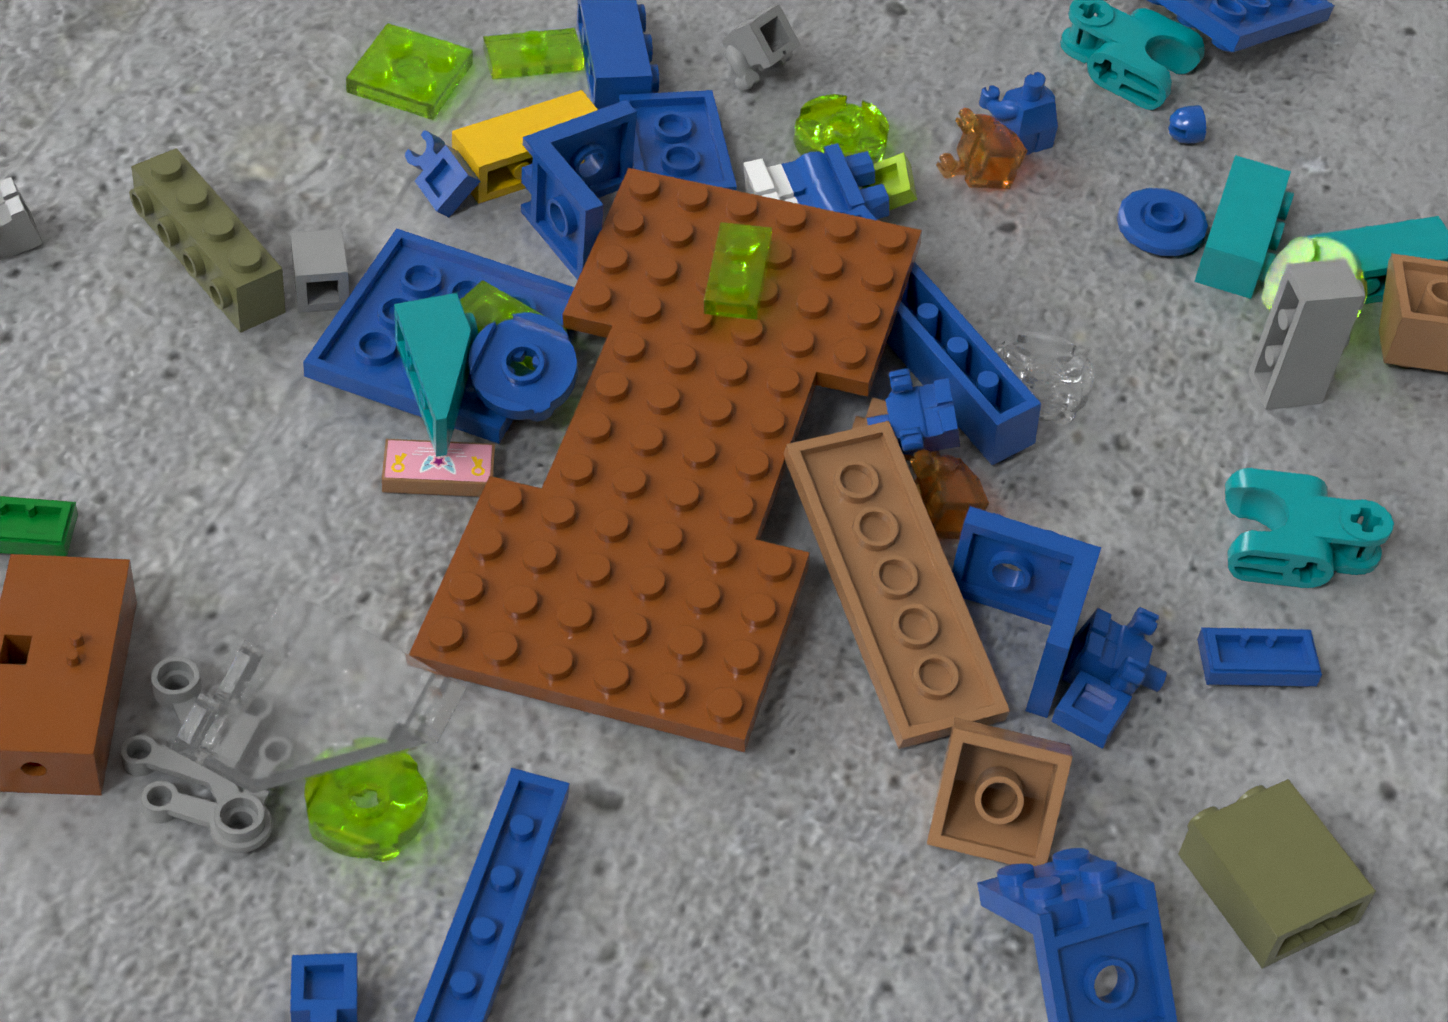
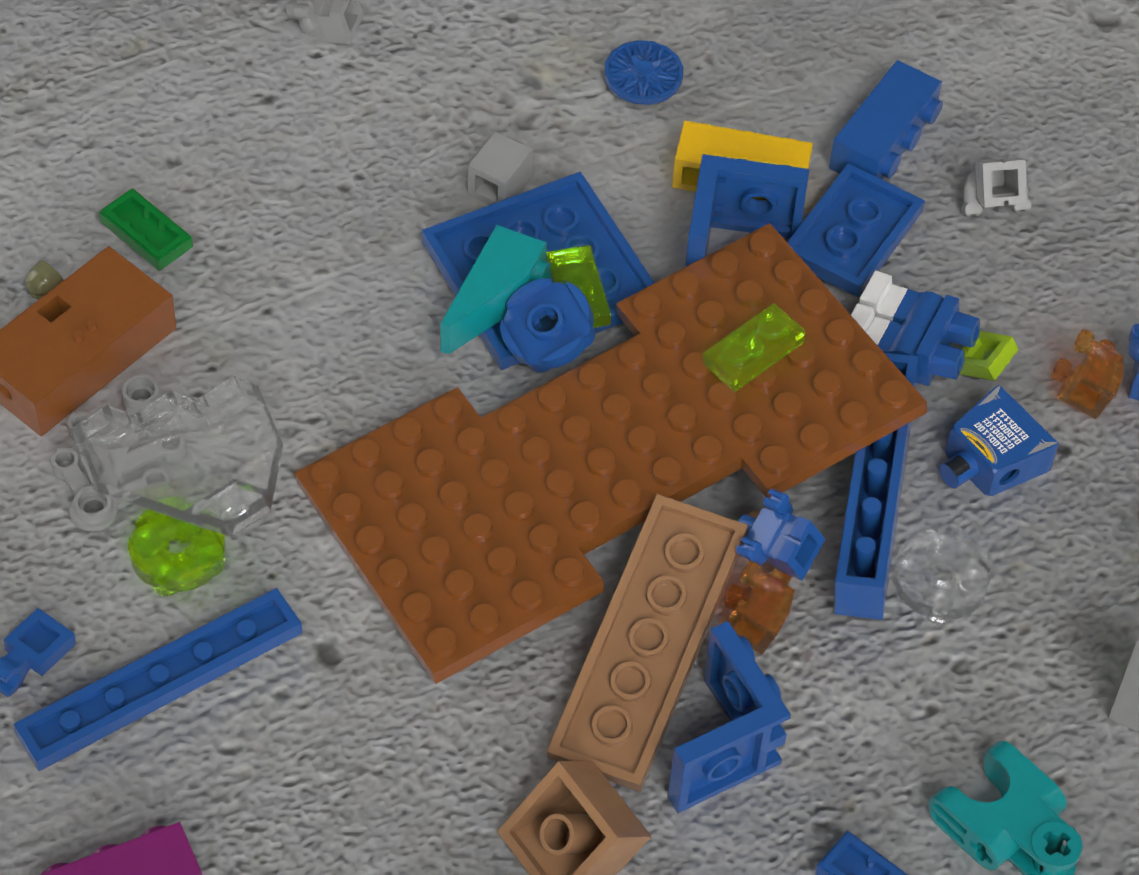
camera: 45 degrees right, 5 degrees up
(208, 239) = (445, 104): olive brick -> none
(355, 119) = (643, 72): none -> blue wheel
(409, 71) = (723, 56): clear neon green plate -> none
(415, 469) = (458, 369): tile -> none
(444, 175) = (657, 153): blue plate -> none
(533, 53) = (824, 91): clear neon green plate -> none
(861, 127) = (1002, 272): clear neon green plate -> none
(972, 247) = (997, 446): none -> blue torso
(1091, 709) = (704, 827): blue plate -> none
(1116, 652) = (759, 804): blue piece -> none

